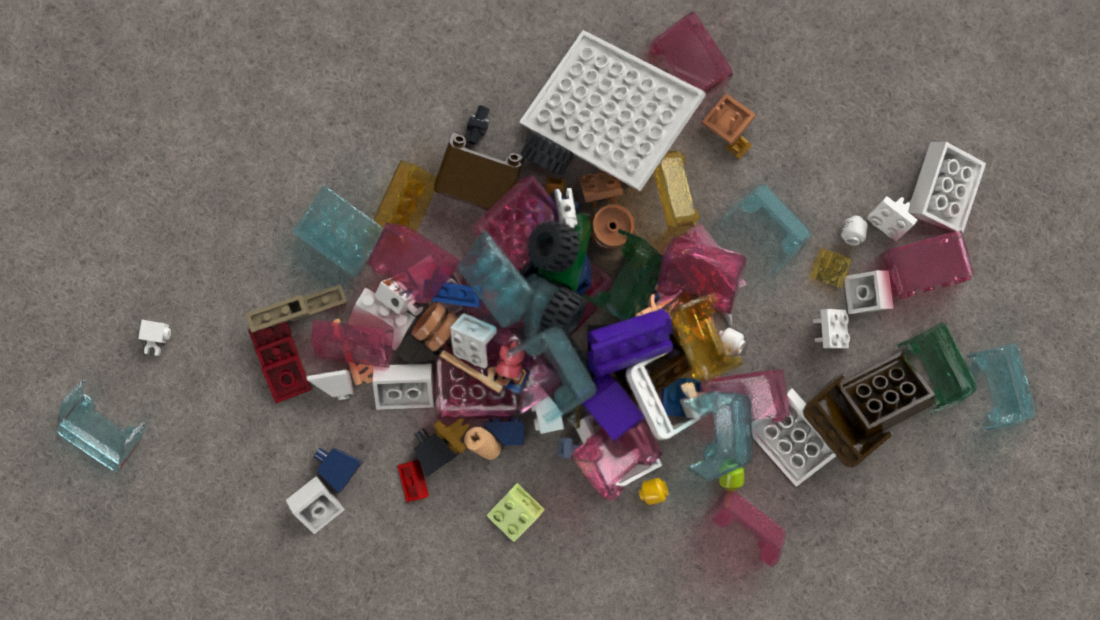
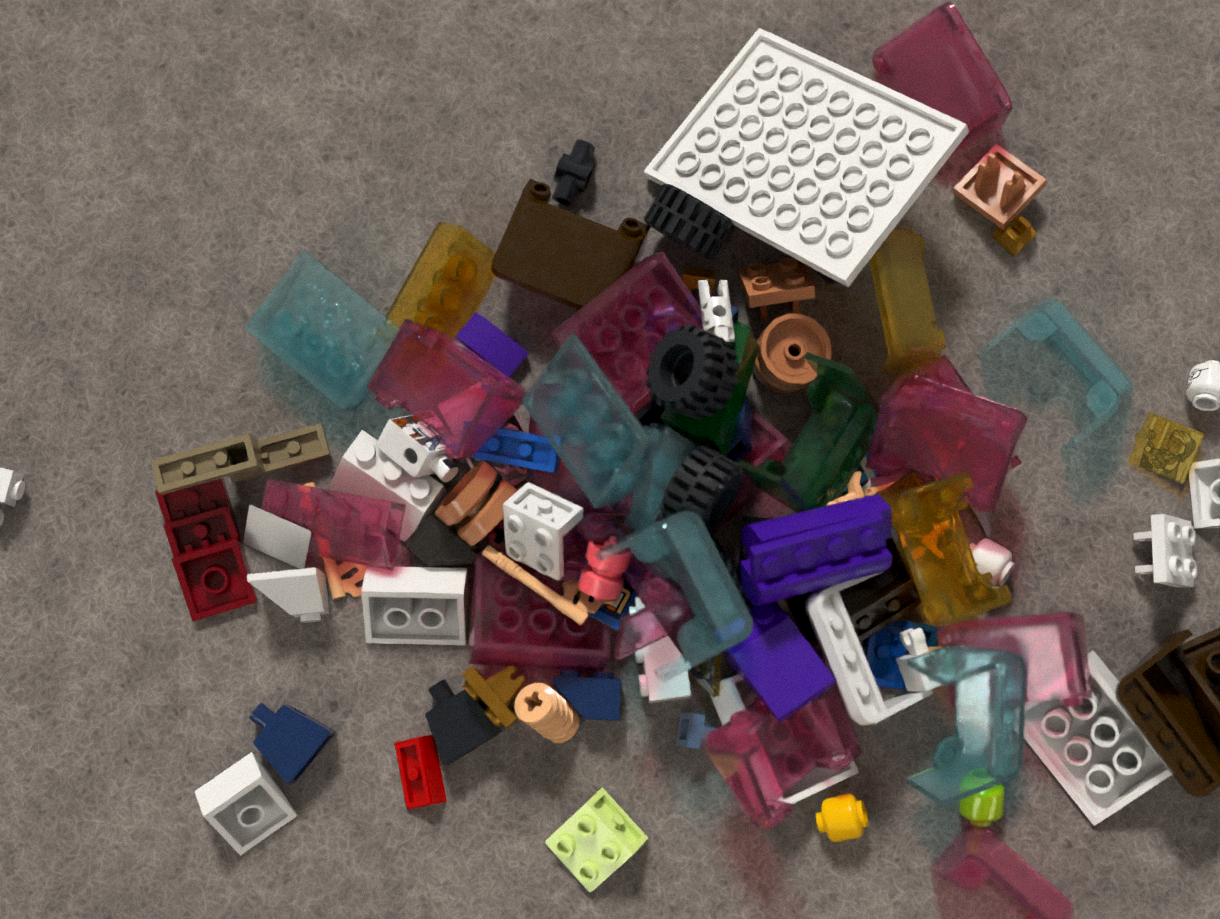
camera: 10 degrees right, 5 degrees down
(320, 352) = (277, 537): none -> white sticker
(436, 231) = (491, 344): none -> dark purple slope

